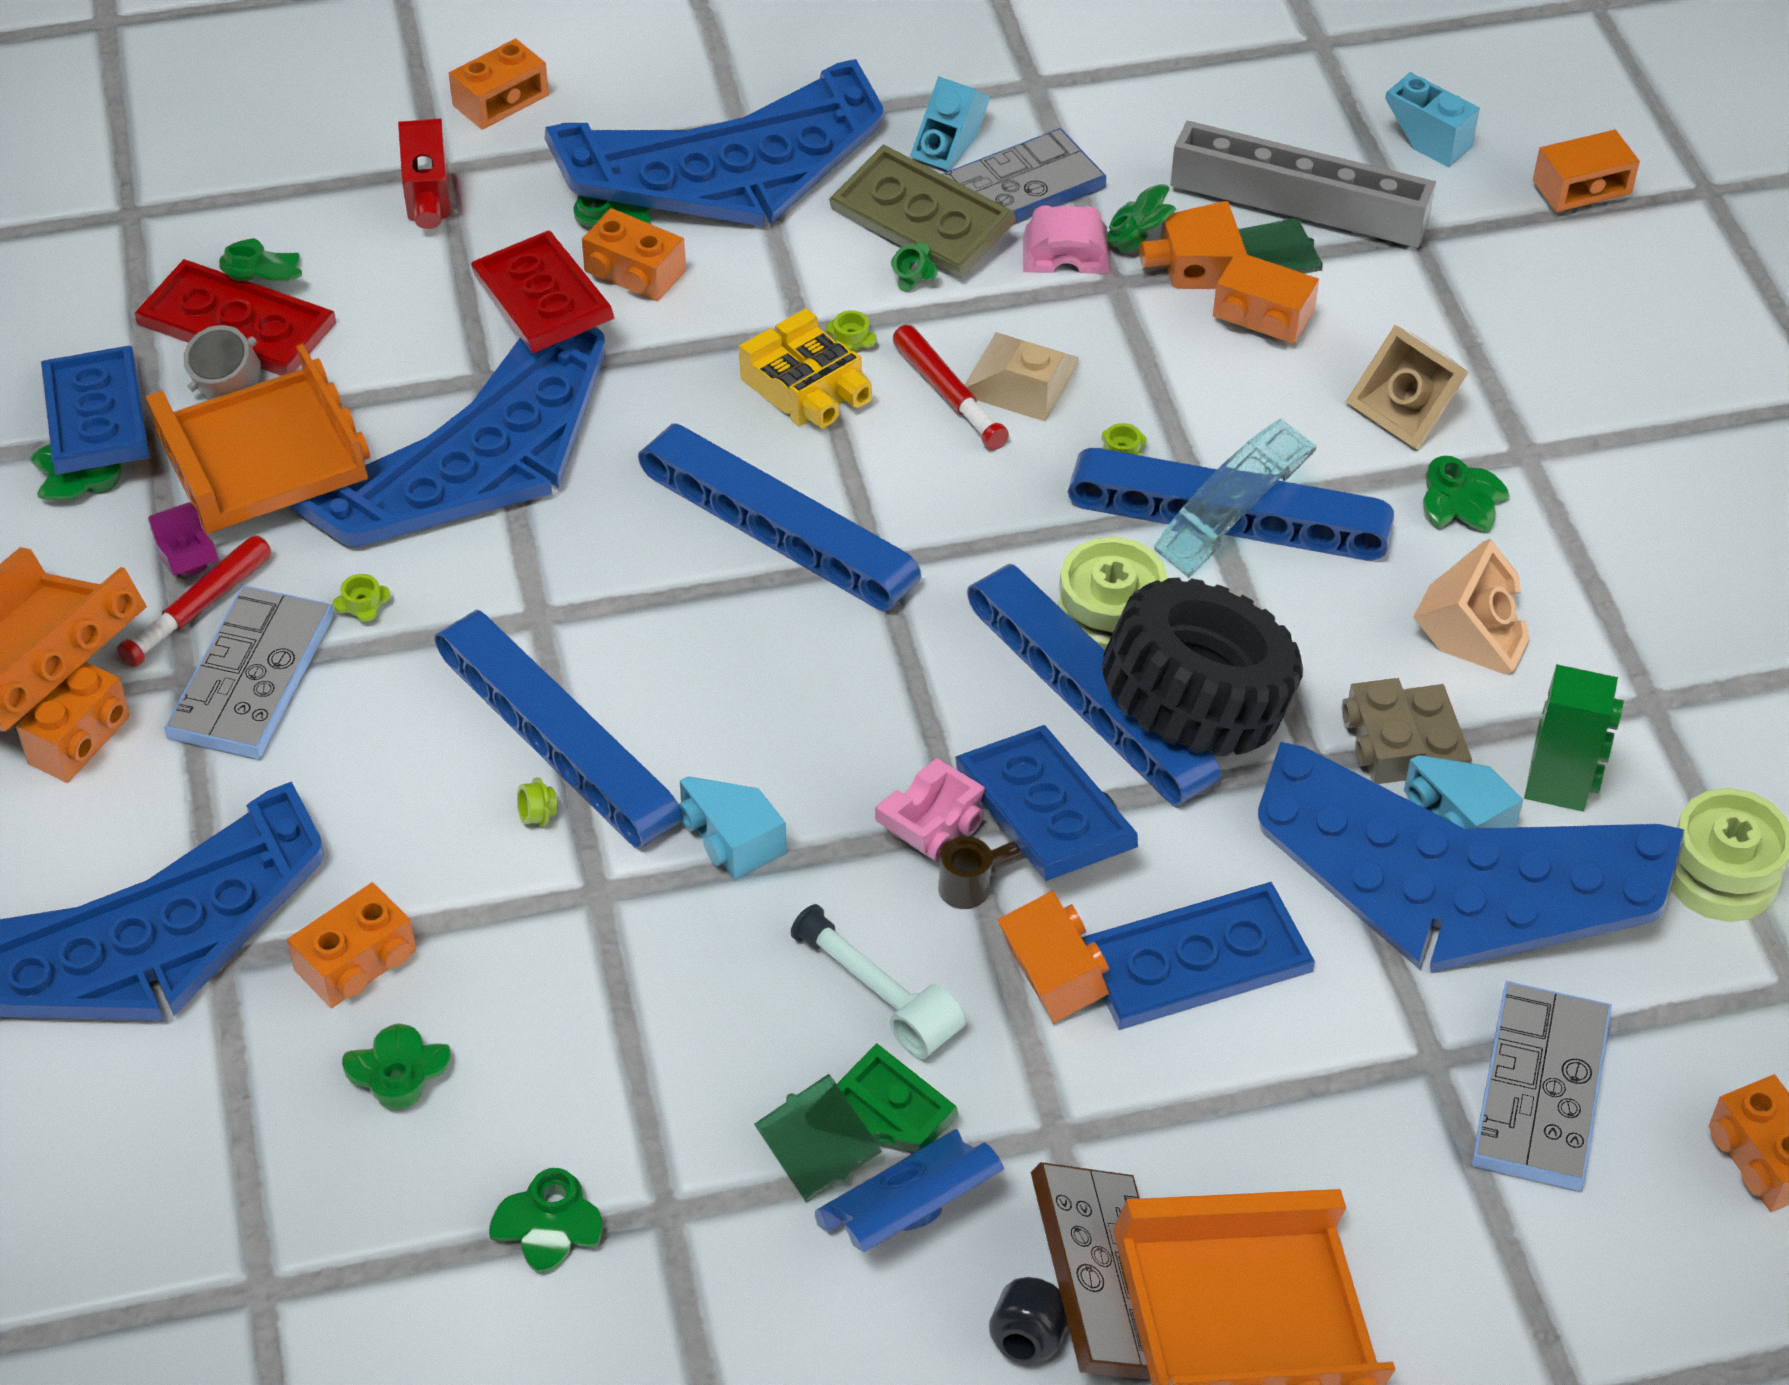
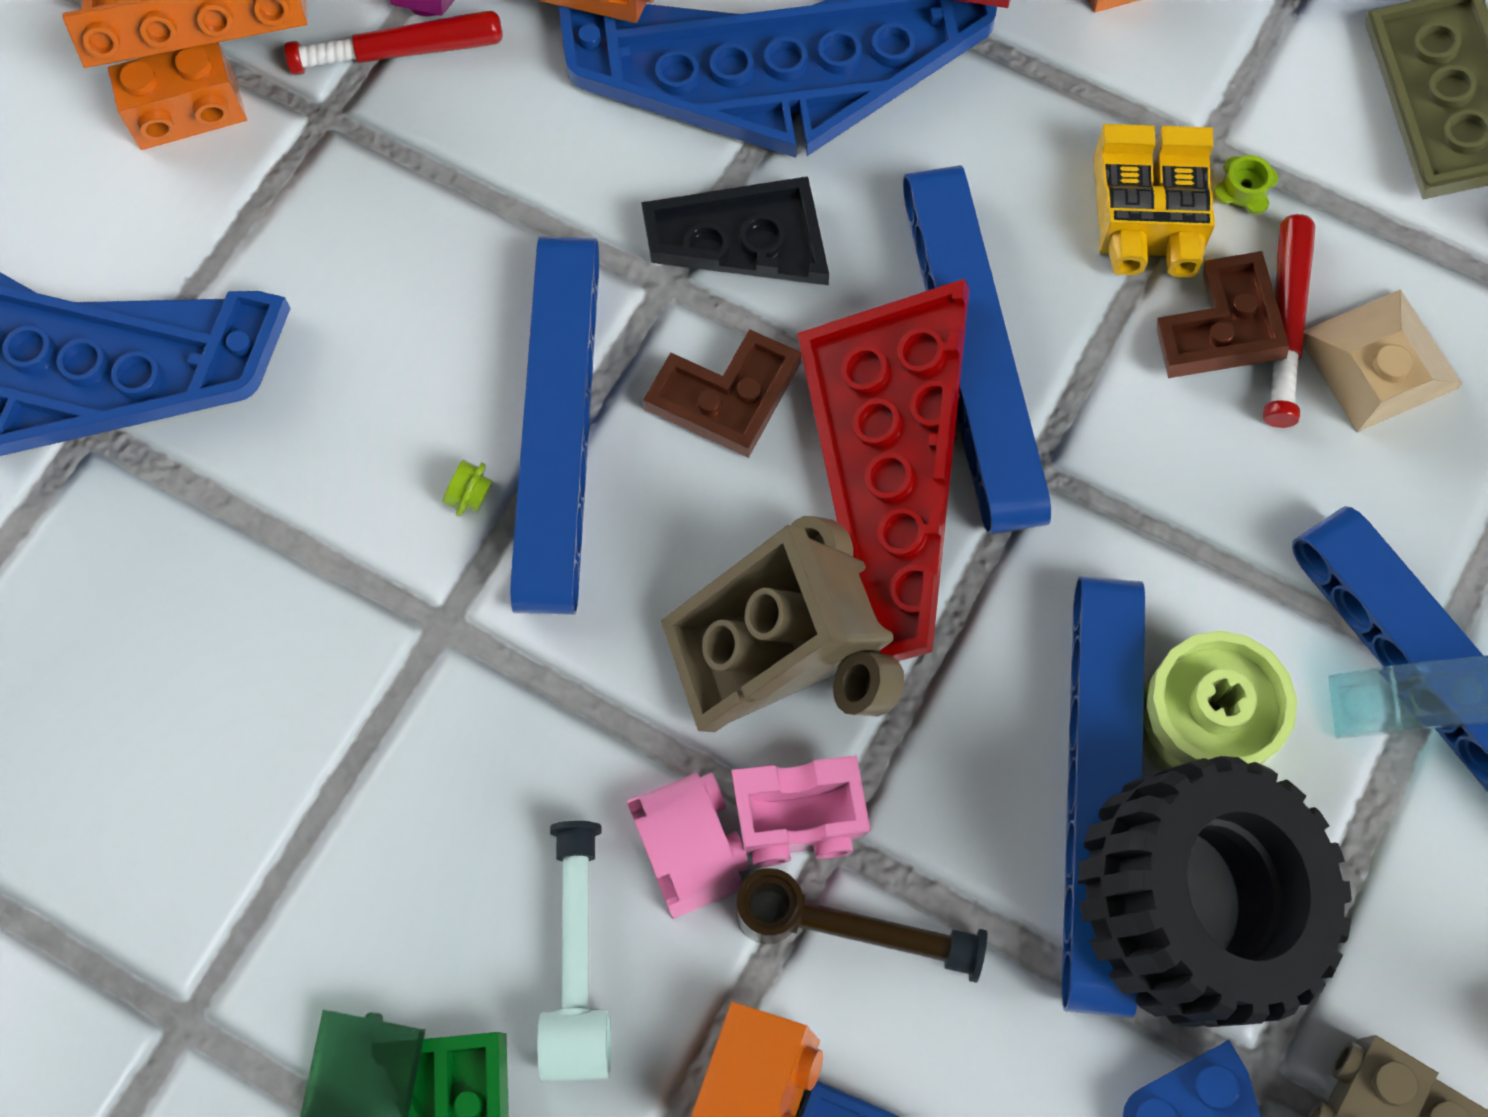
camera: 45 degrees right, 20 degrees up
(249, 672) = (372, 151): light grey tile -> none
(352, 945) = (177, 511): orange brick -> none
(361, 597) = (523, 133): lime plate -> none
(396, 1065) = (112, 657): green plate -> none
(546, 1226) = (67, 945): green plate -> none
(562, 551) = (741, 230): none -> black wing
(657, 648) = (730, 406): none -> copper plate
(734, 822) = (609, 664): medium azure slope -> none
(777, 591) = (886, 432): none -> red wing
(824, 724) = (782, 625): none -> dark tan piece
(884, 878) = (688, 844): none -> bright pink cylinder
(906, 258) = (1375, 139): green plate -> none
(922, 406) = (1236, 331): none -> copper plate
(1047, 803) = (917, 902): blue tile -> none
(1123, 438) = (1415, 514): lime plate -> none

